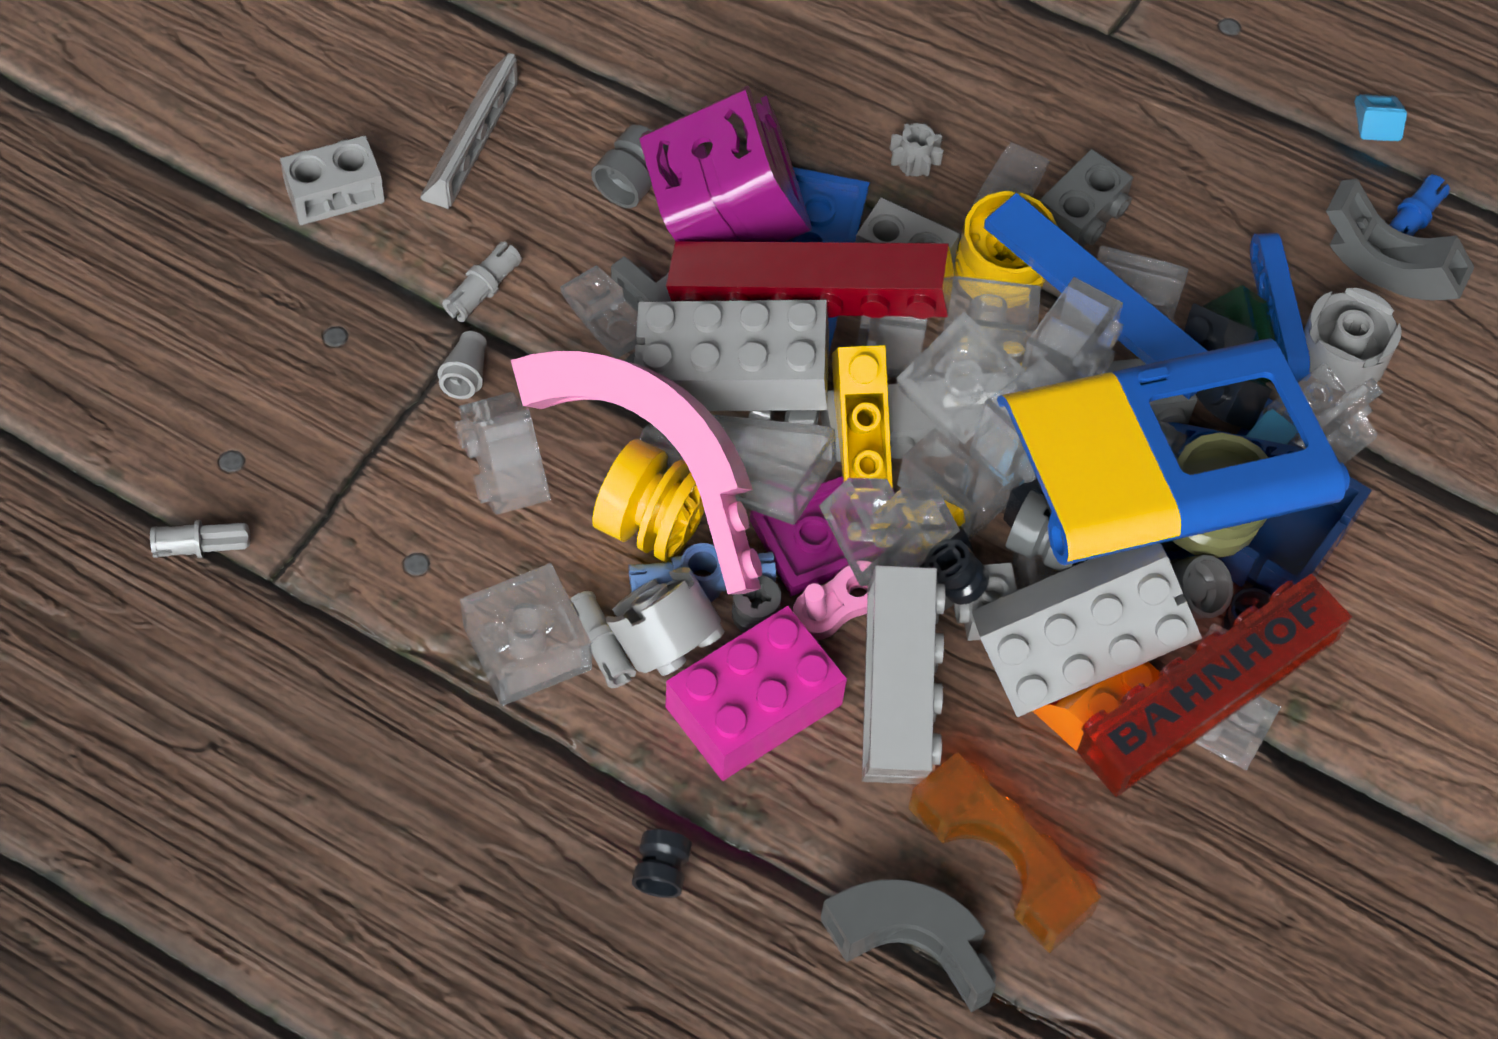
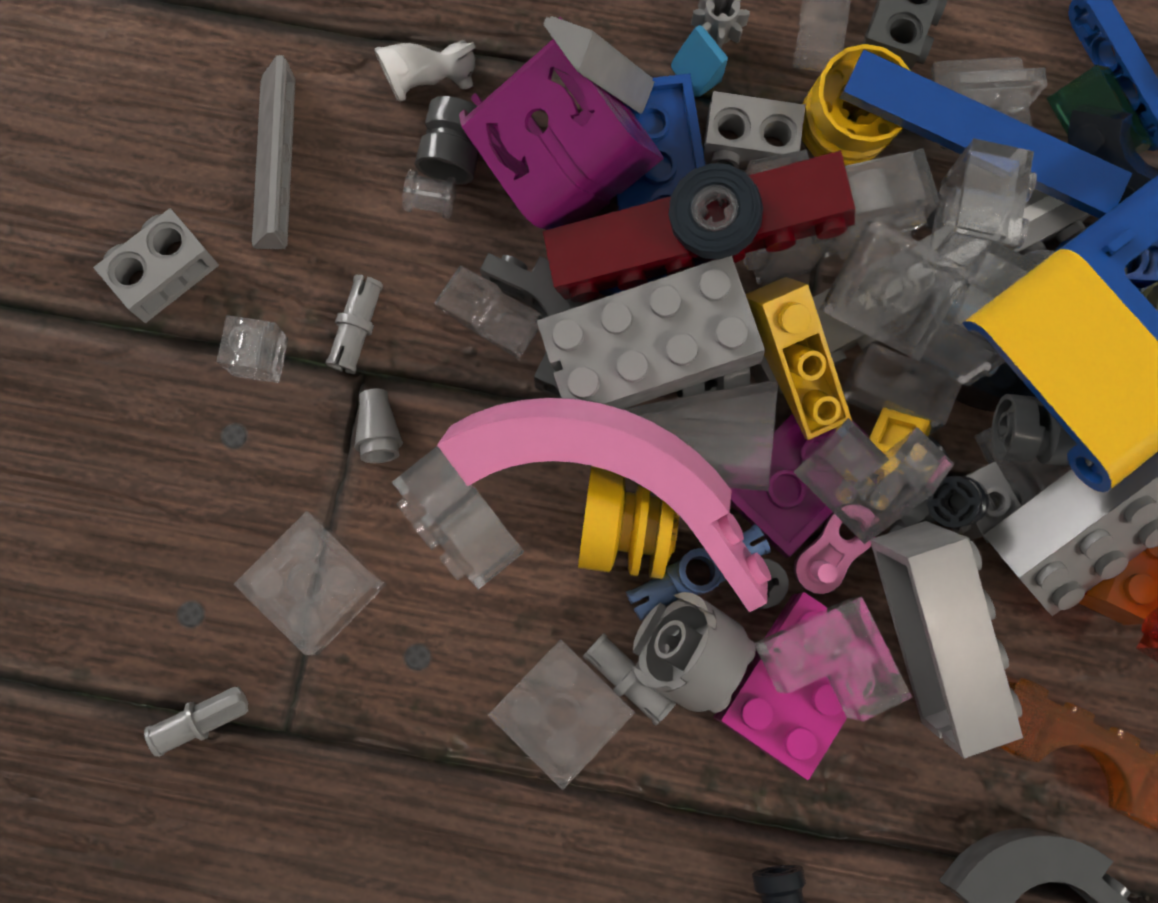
camera: 20 degrees left, 20 degrees up
(351, 462) = (310, 584): none -> clear brick
(385, 267) = (252, 349): none -> clear brick
(594, 202) = (429, 194): none -> clear bush
(625, 100) = (415, 65): none -> white animal
(781, 130) = (601, 63): none -> light grey slope
(783, 629) = (843, 647): none -> clear brick
(829, 278) = (689, 206): none -> black bush
(884, 177) = (701, 59): none -> dark azure slope

